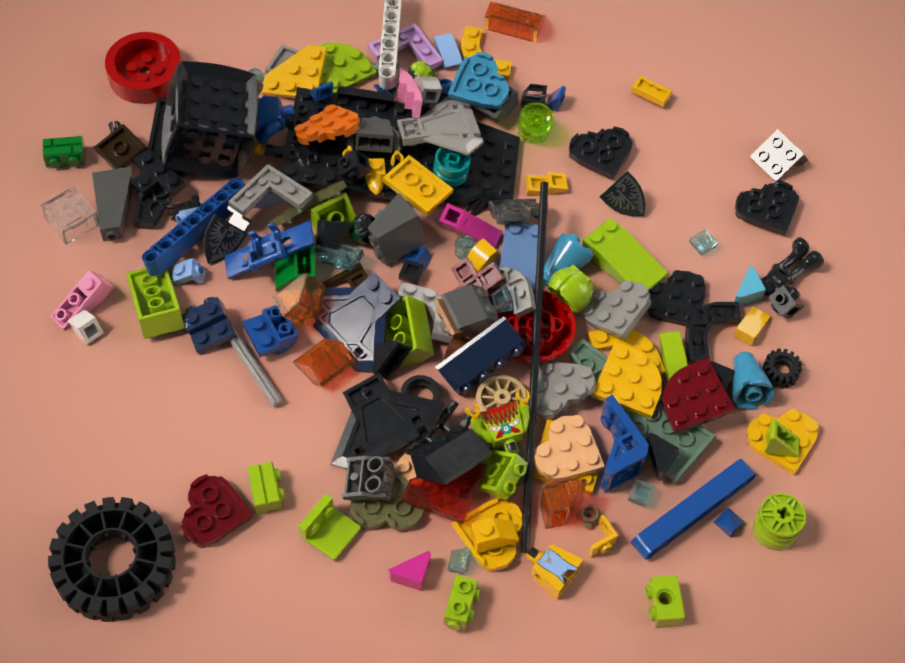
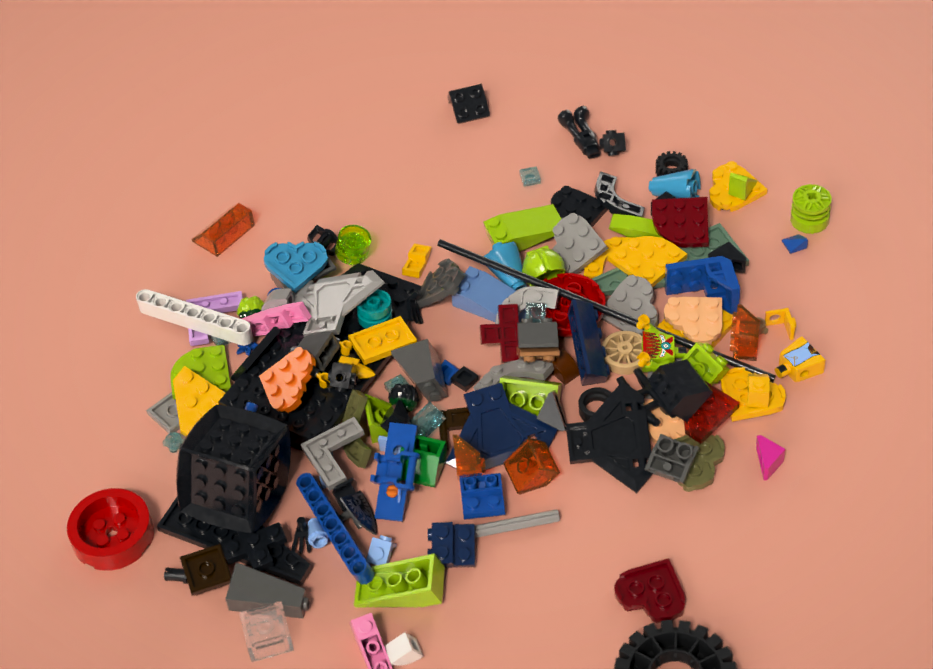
camera: 60 degrees left, 10 degrees down
(64, 151) = (178, 624): green brick -> none
(265, 488) = (645, 543): lime brick -> none
(322, 92) = (238, 379): blue slope -> none
(328, 528) = (704, 506): lime bracket -> none
(448, 50) = (229, 284): light blue slope -> none
(460, 561) = (768, 423): clear light blue slope -> none
(460, 602) = (811, 430): lime brick -> none
(461, 243) = (456, 334): clear light blue wheel -> none
(464, 223) = (437, 322): dark pink slope -> none
(471, 44) = (239, 271): yellow plate -> none
(482, 255) = (471, 323): yellow brick -> none
(556, 99) = (330, 222): blue slope -> none
(601, 151) = (402, 212): black plate -> none
(625, 196) = (461, 208): shield -> none
(642, 493) = (751, 286): clear light blue plate -> none
(651, 91) = (357, 162): yellow plate -> none
(666, 588) = (852, 300): lime brick -> none
(693, 509) = (777, 259): blue beam -> none
(751, 289) = (587, 161): medium azure slope -> none
(751, 325) = (625, 174): yellow slope -> none
(768, 207) = (515, 126): black plate -> none

